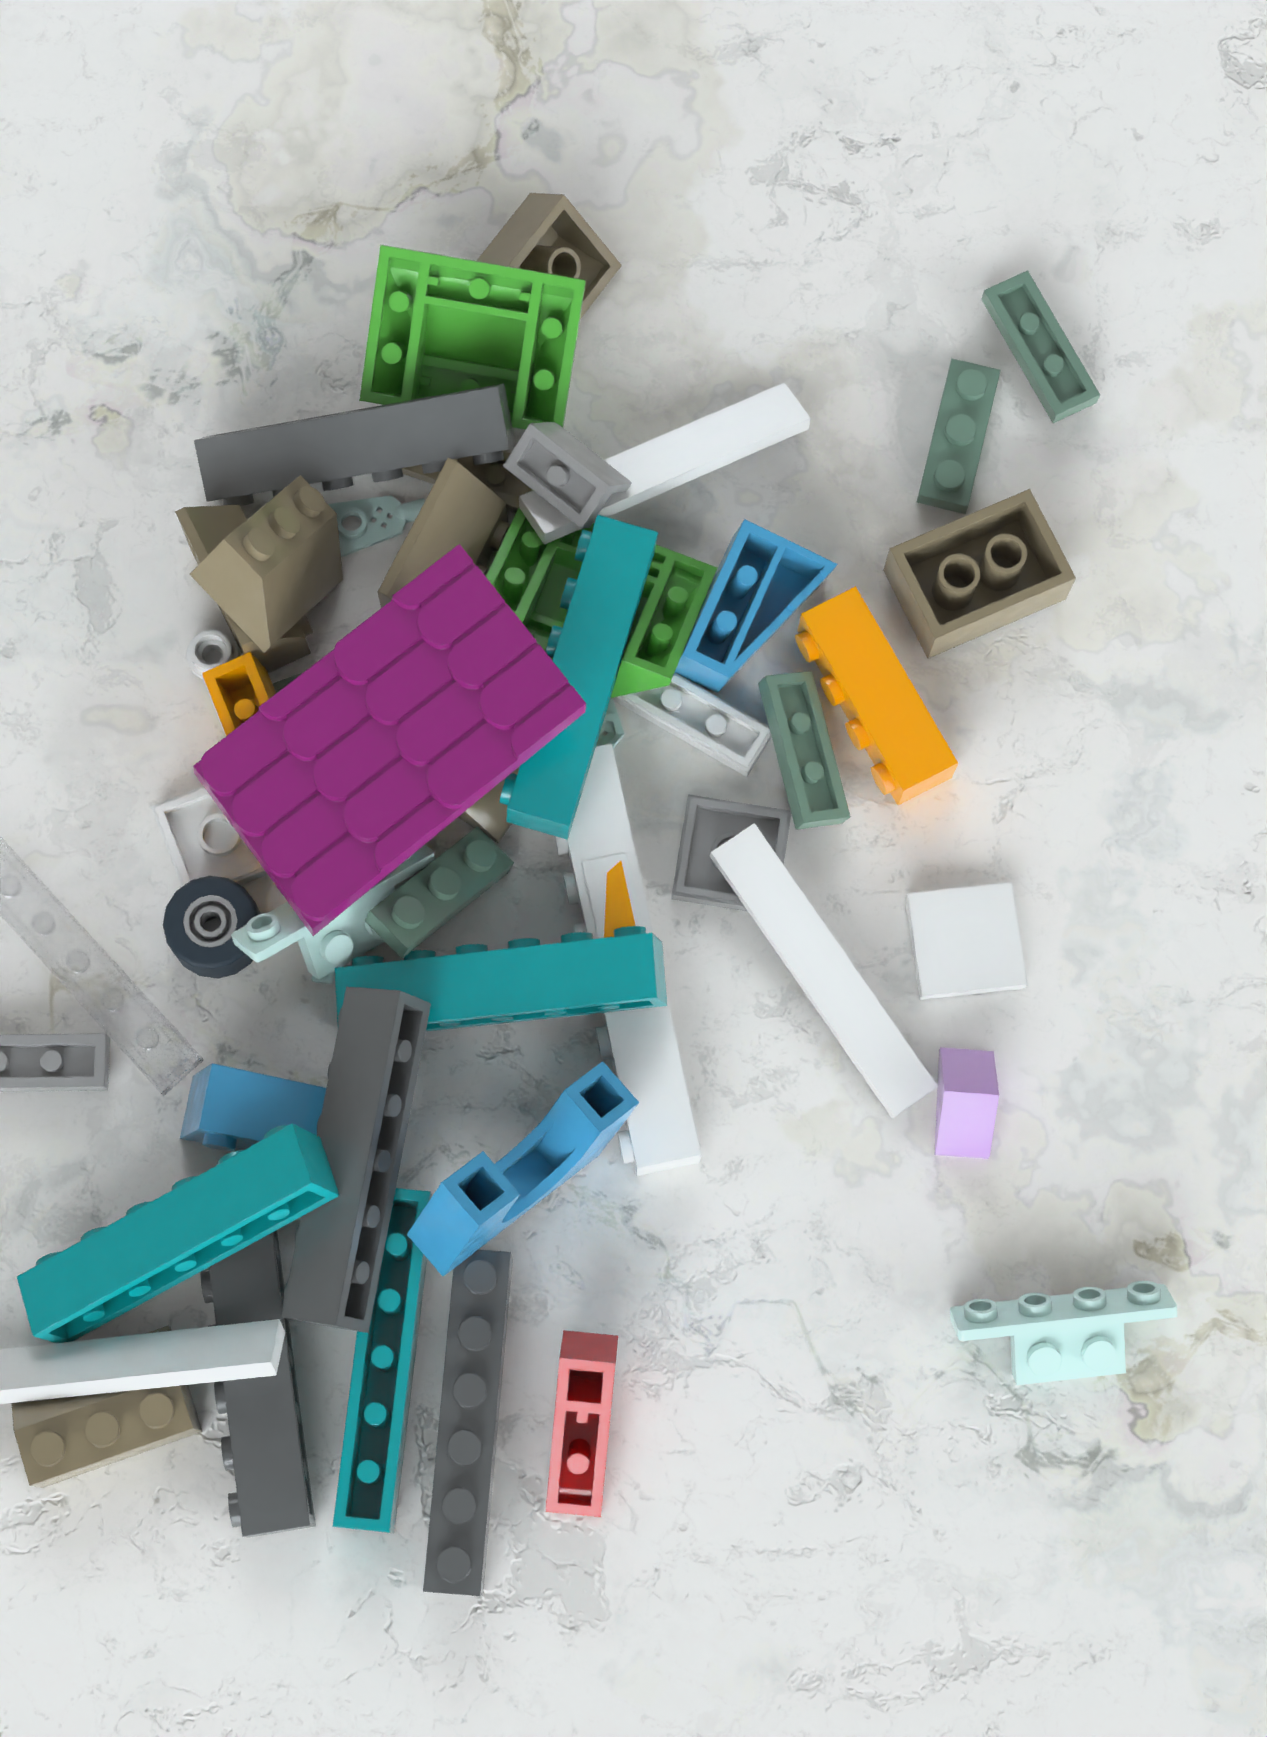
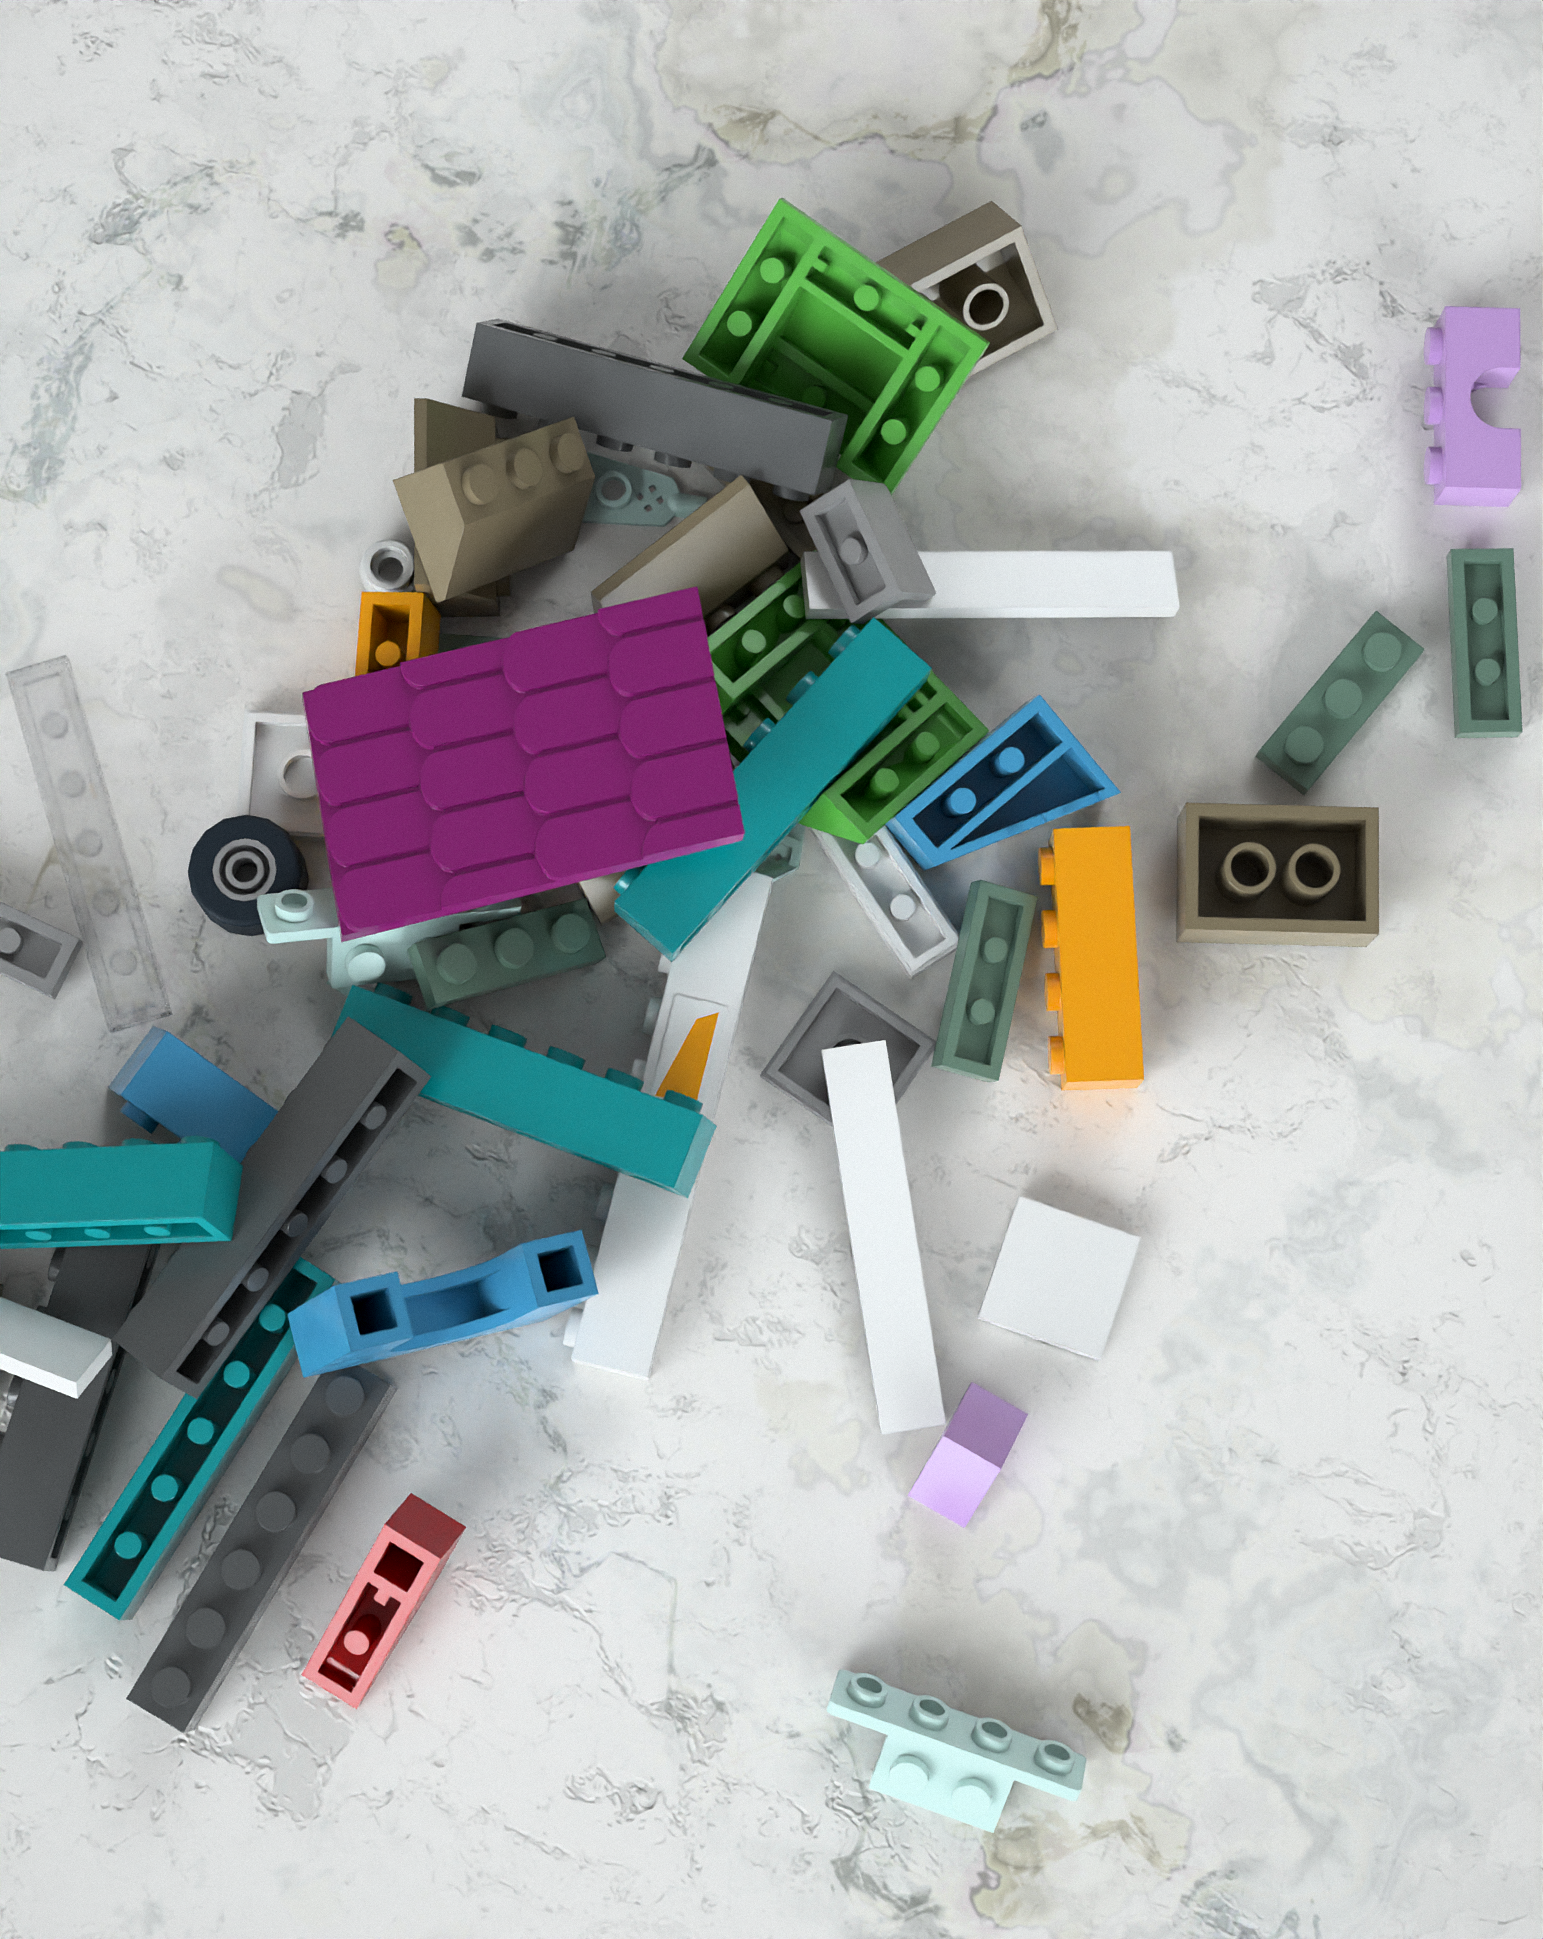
camera: 25 degrees right, 5 degrees up
(961, 221) = (1470, 458): none -> lavender arch

